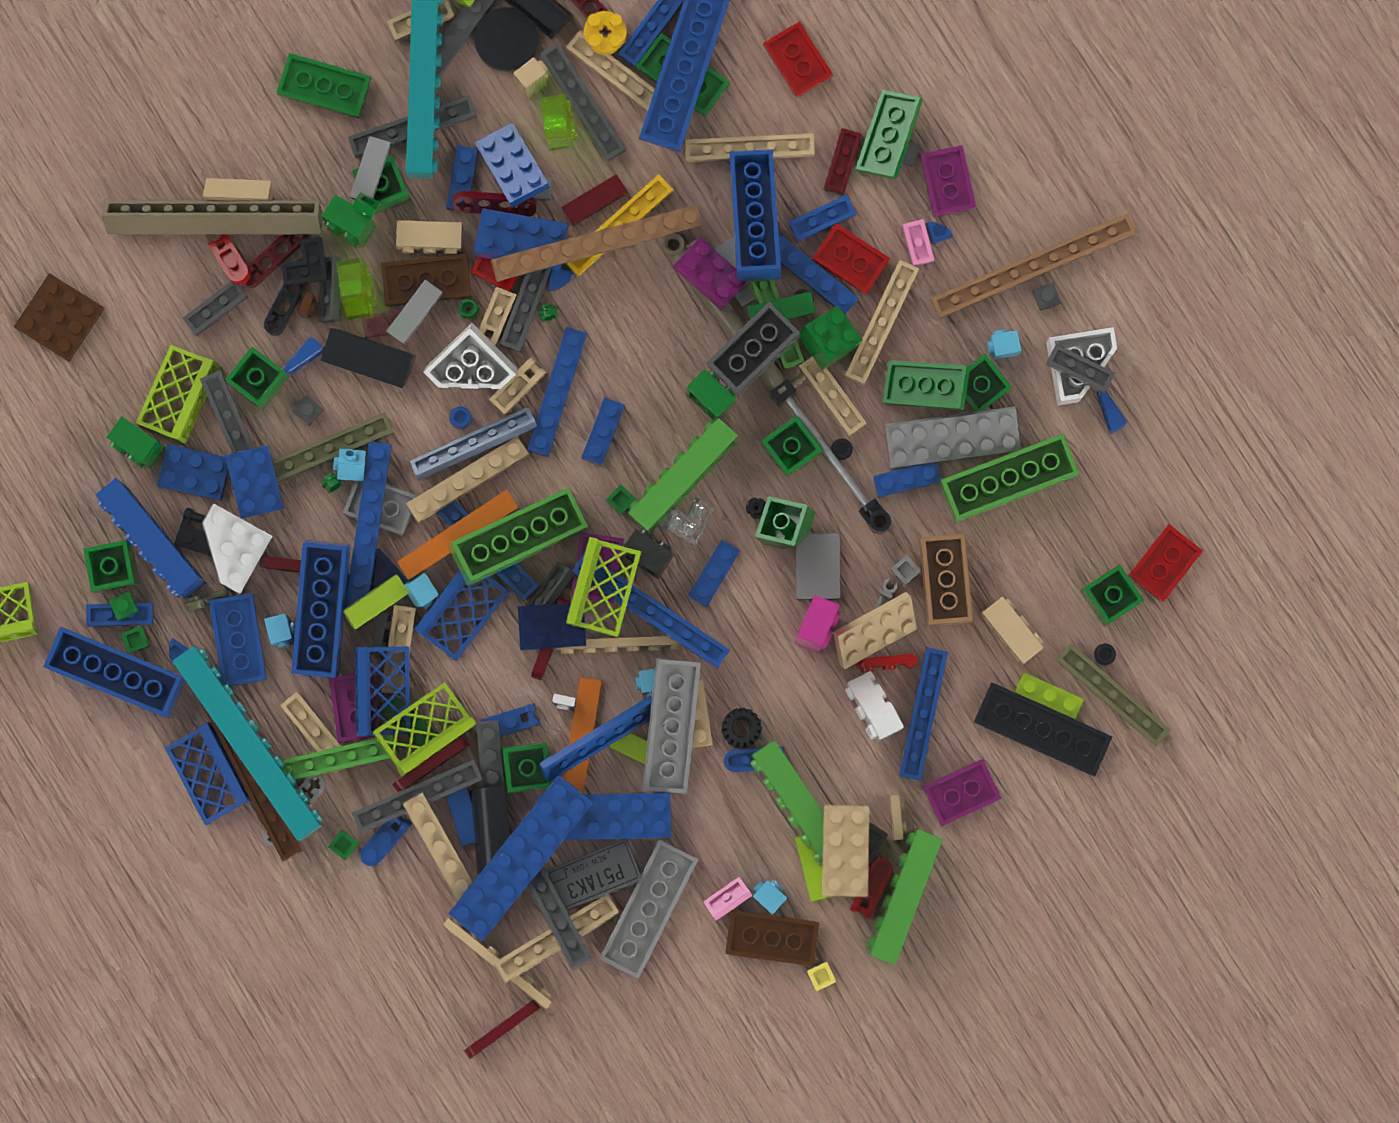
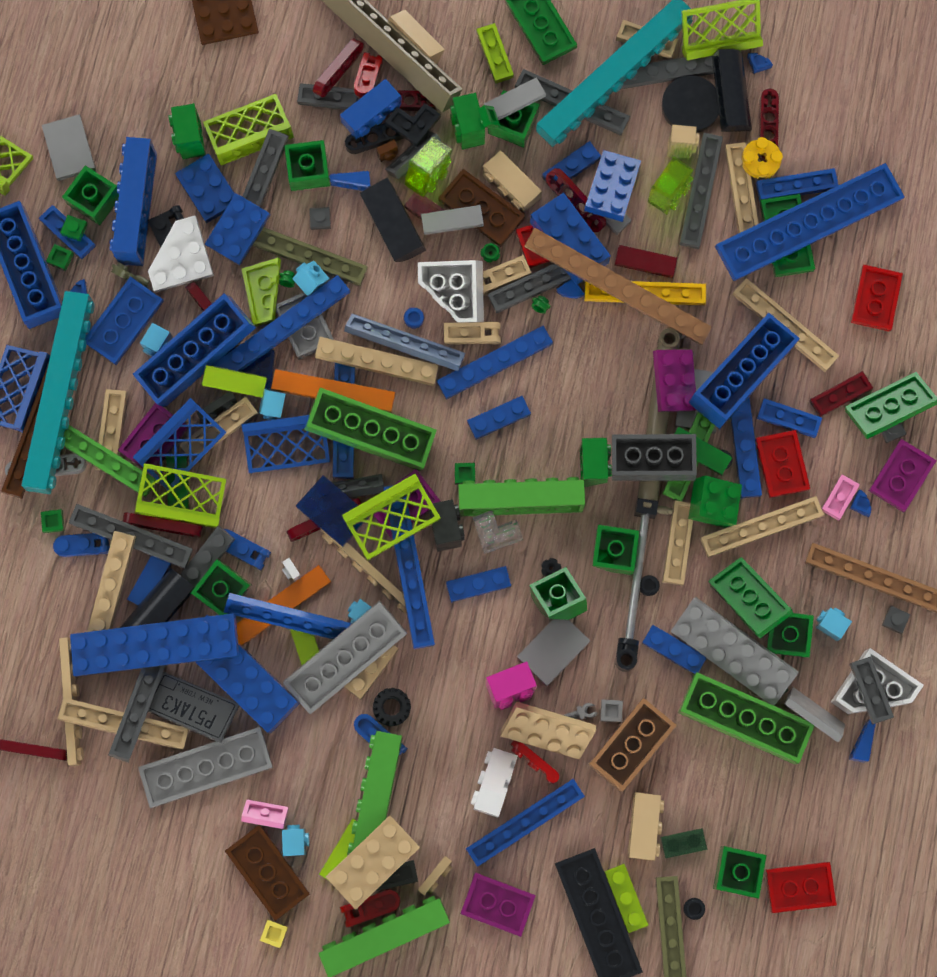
camera: 45 degrees right, 5 degrees down
(49, 547) = (68, 147): none -> light grey tile
(201, 276) = (338, 67): none -> dark red beam
(262, 285) = (371, 109): none -> blue brick
(312, 145) = (495, 53): none -> lime plate
(321, 510) = (262, 290): none -> lime wing
(1051, 614) = (683, 843): none -> clear green plate
(1056, 426) = (815, 714): none -> light grey tile

